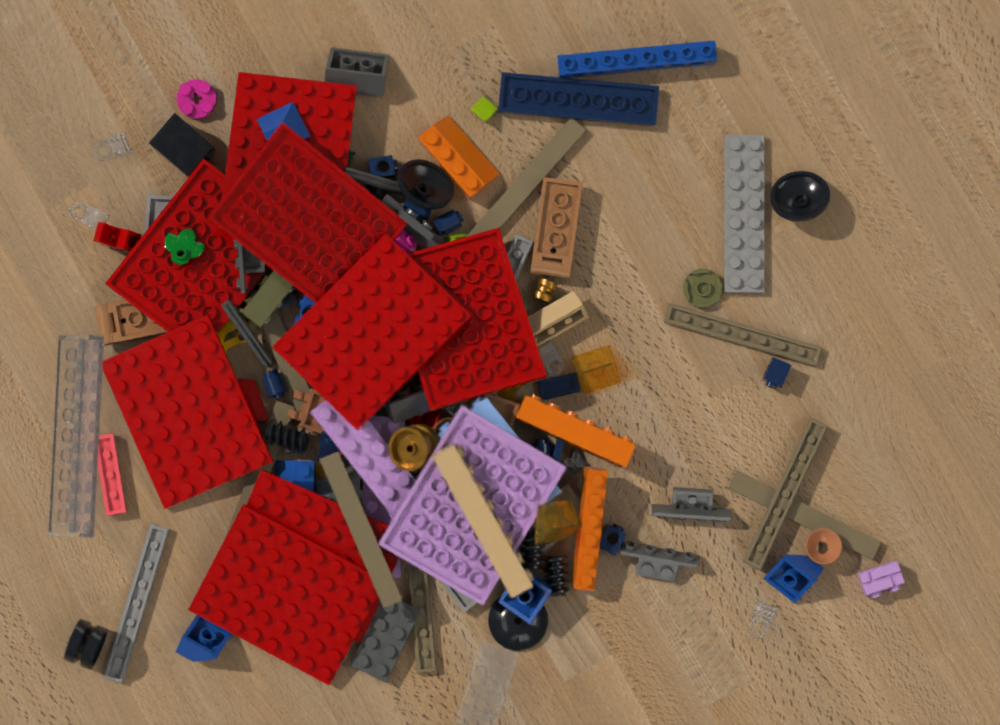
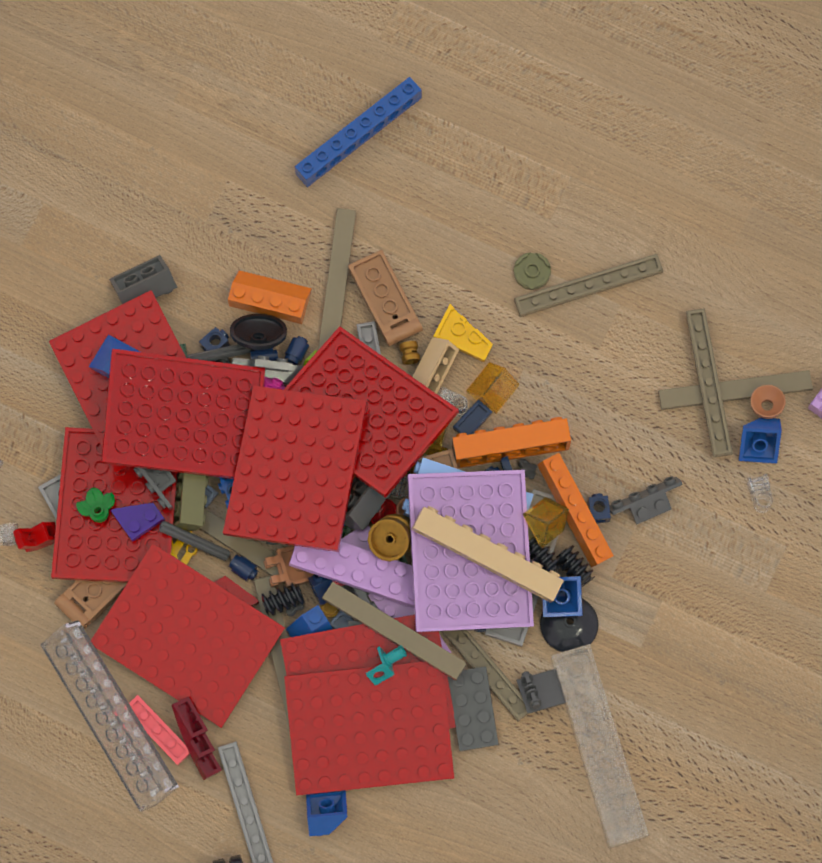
camera: 30 degrees left, 10 degrees down
(135, 505) = (194, 735): none -> dark red slope
(182, 145) = (40, 429): black slope -> none
(205, 105) = (26, 398): dark pink plate -> none
(210, 283) = (138, 519): none -> dark purple wing
(337, 551) = (387, 663): none -> teal bracket
(452, 662) = (540, 691): none -> dark grey hinge
(484, 109) = (264, 247): lime slope -> none
(578, 99) = (333, 191): dark blue plate -> none
(601, 306) = (463, 335): none -> yellow wing
(692, 504) = (641, 439): dark grey bracket -> none
(743, 213) = (524, 194): light grey plate -> none
(776, 373) = (635, 295): dark blue brick -> none
(800, 188) = (558, 150): black dish -> none

